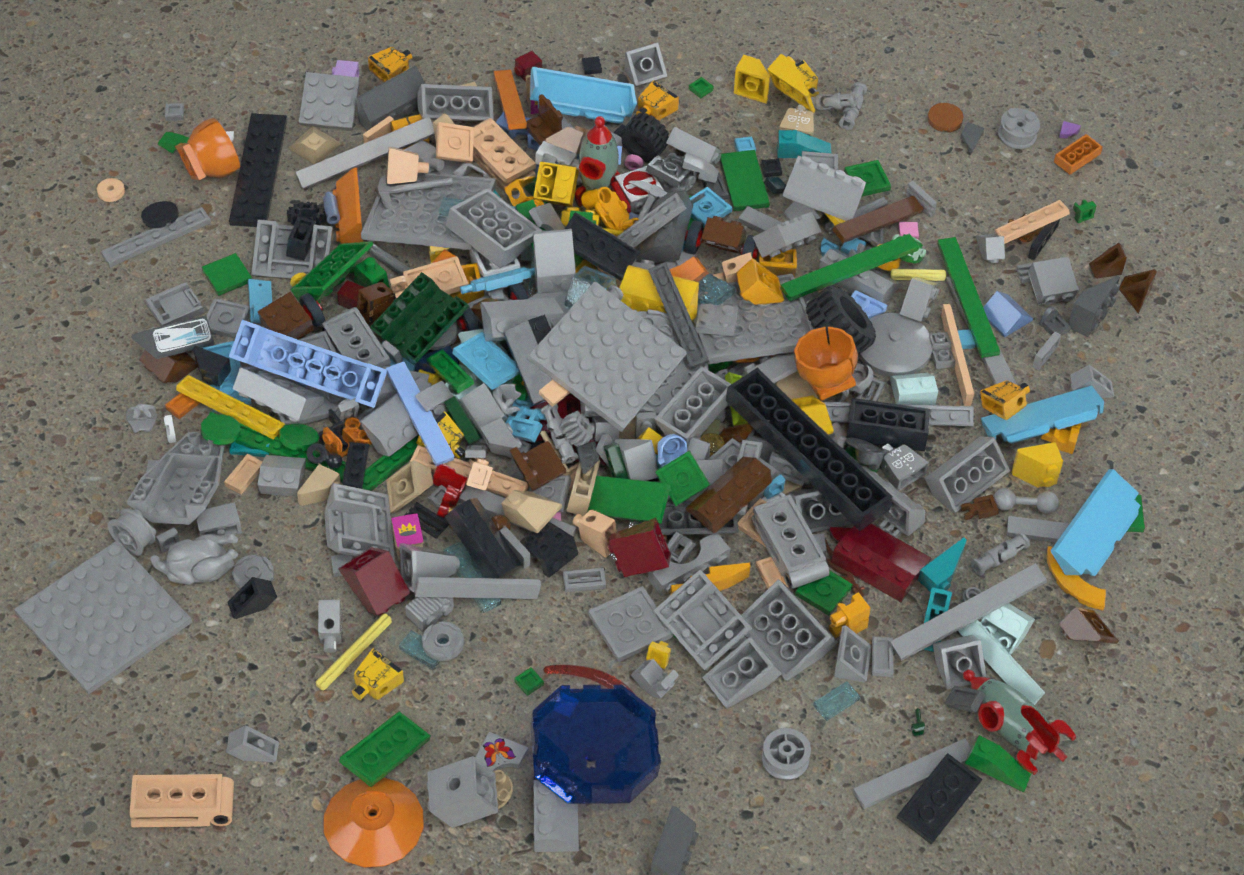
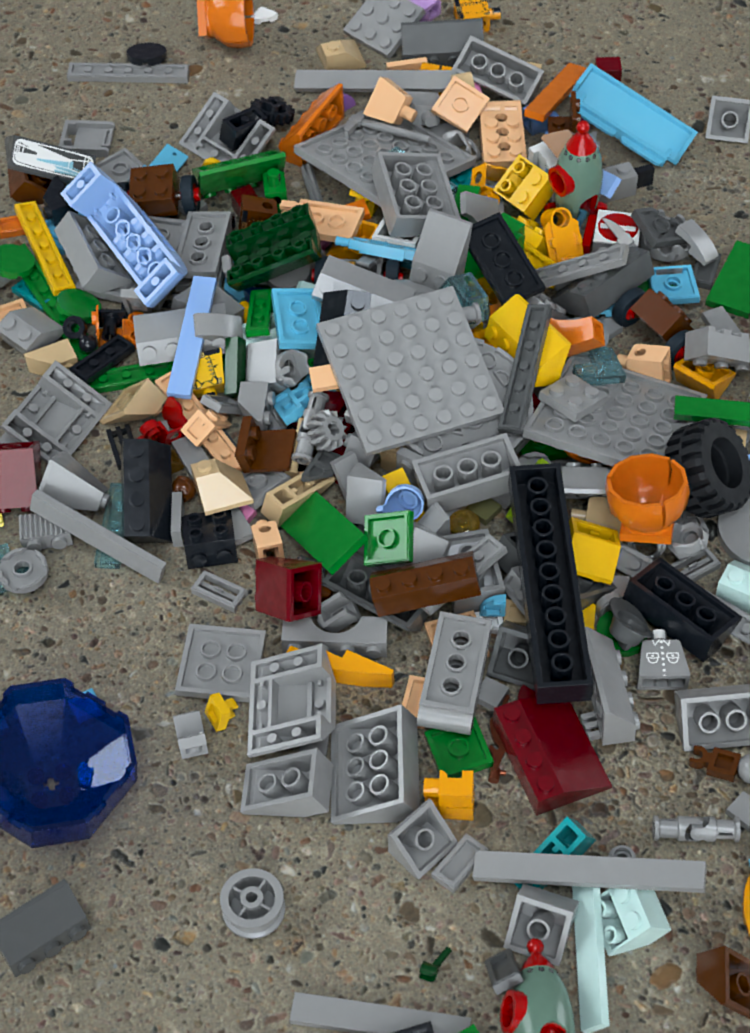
camera: 40 degrees right, 0 degrees up
(107, 184) = (128, 16): light nougat piece -> none
(226, 274) = (156, 132): green tile -> none
(258, 169) = (271, 55): black plate -> none
(331, 208) = (293, 113): sand blue cylinder -> none
(406, 530) = (89, 447): dark pink piece -> none
(529, 681) = (73, 661): green tile -> none
(586, 672) = (150, 723): clear red animal -> none
(591, 65) = (675, 99): black tile -> none
(615, 461) = (340, 486): dark green piece -> none
(633, 162) = (633, 203): bright pink tile -> none
(644, 136) = (662, 184): black tyre -> none
(657, 101) = (710, 161): light orange torso -> none
(694, 146) = (708, 217): light grey slope -> none
(737, 432) = (498, 526): reddish brown tile -> none
(759, 284) = (653, 384): light orange slope -> none
(836, 701) = (365, 880): clear light blue tile -> none
(942, 569) = (609, 806): teal slope -> none

